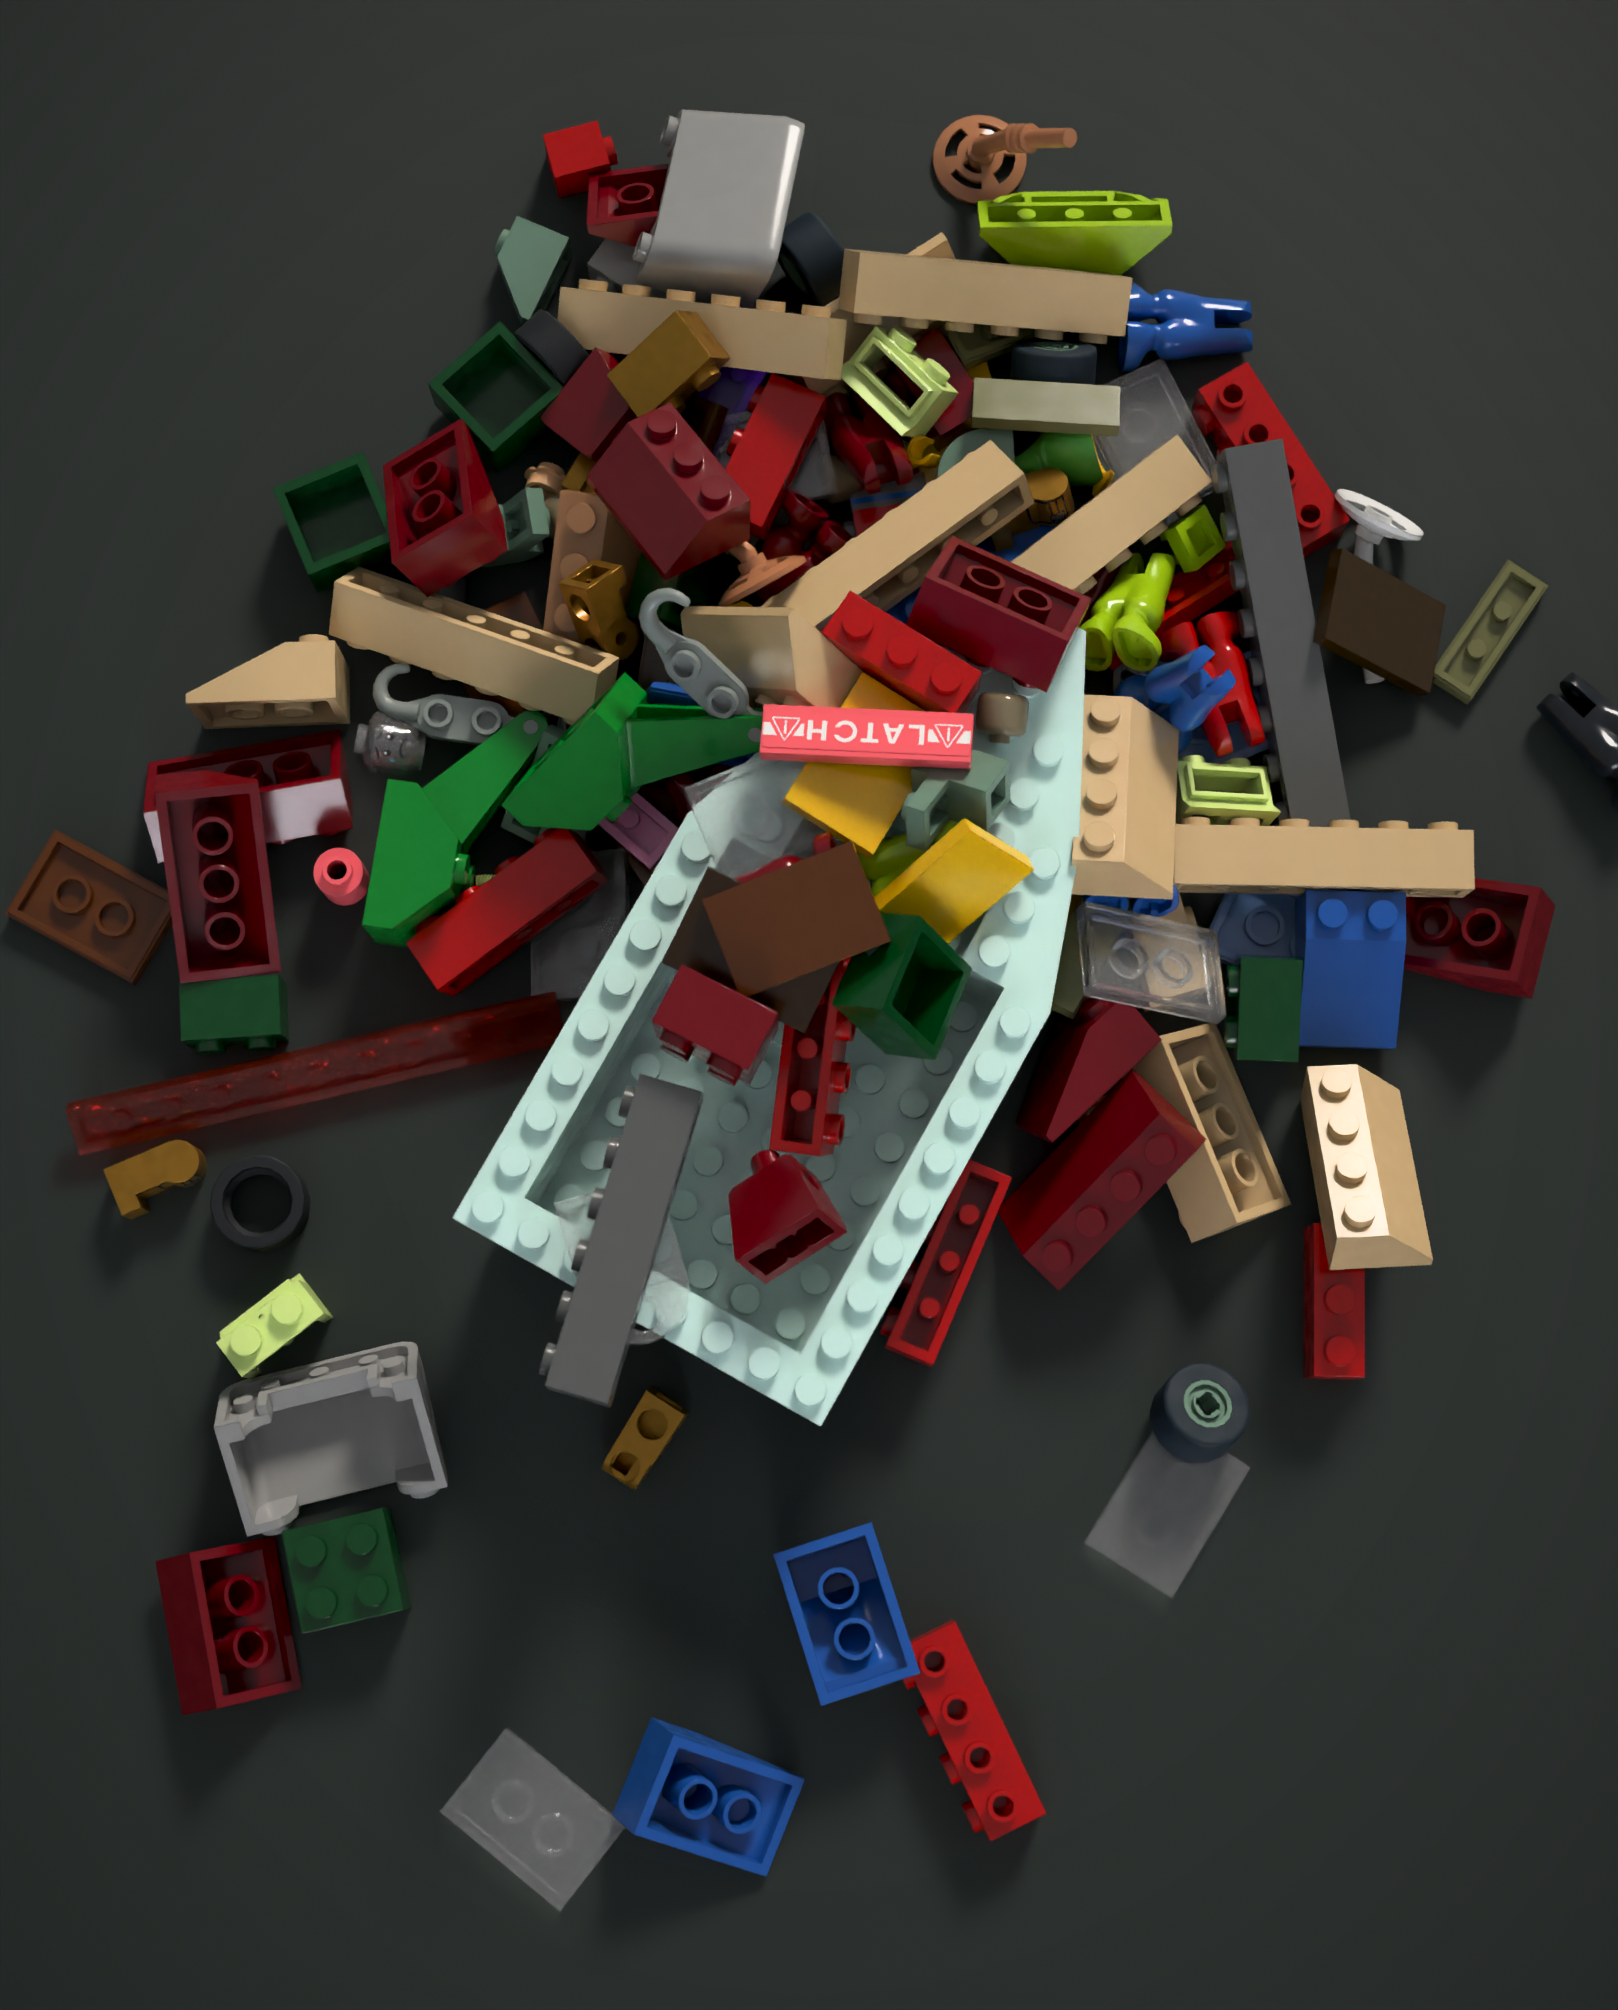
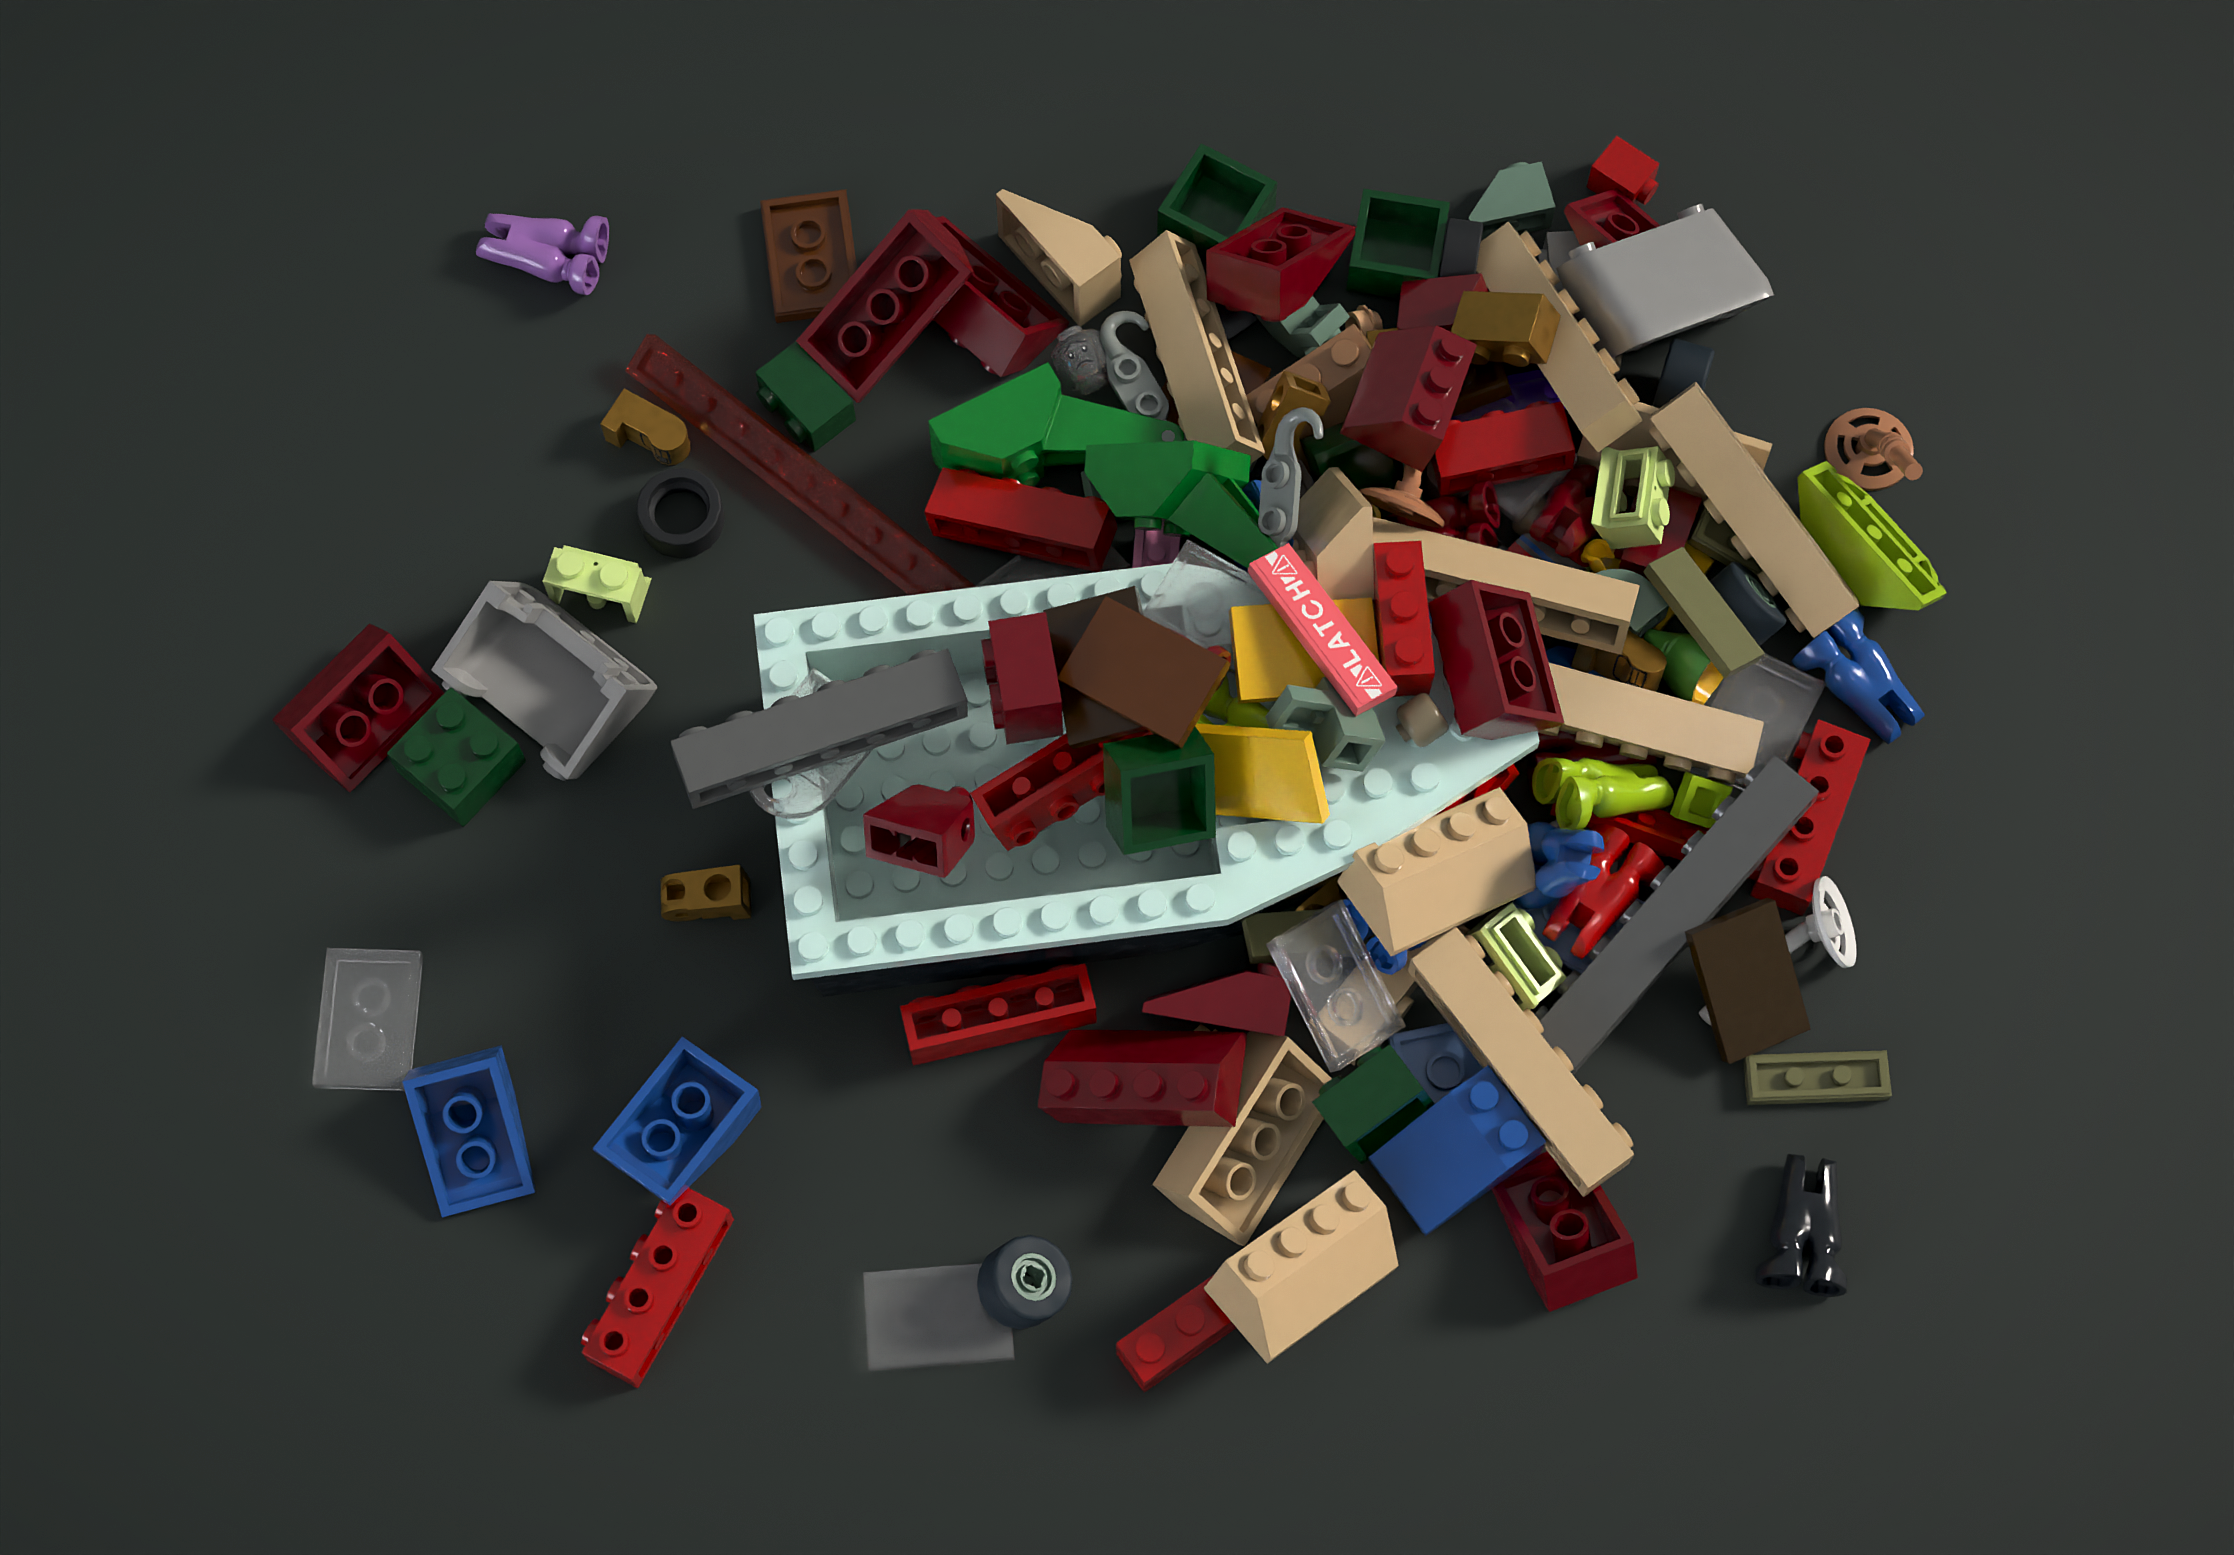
camera: 55 degrees right, 10 degrees down
(347, 889) = (956, 386): coral brick -> none

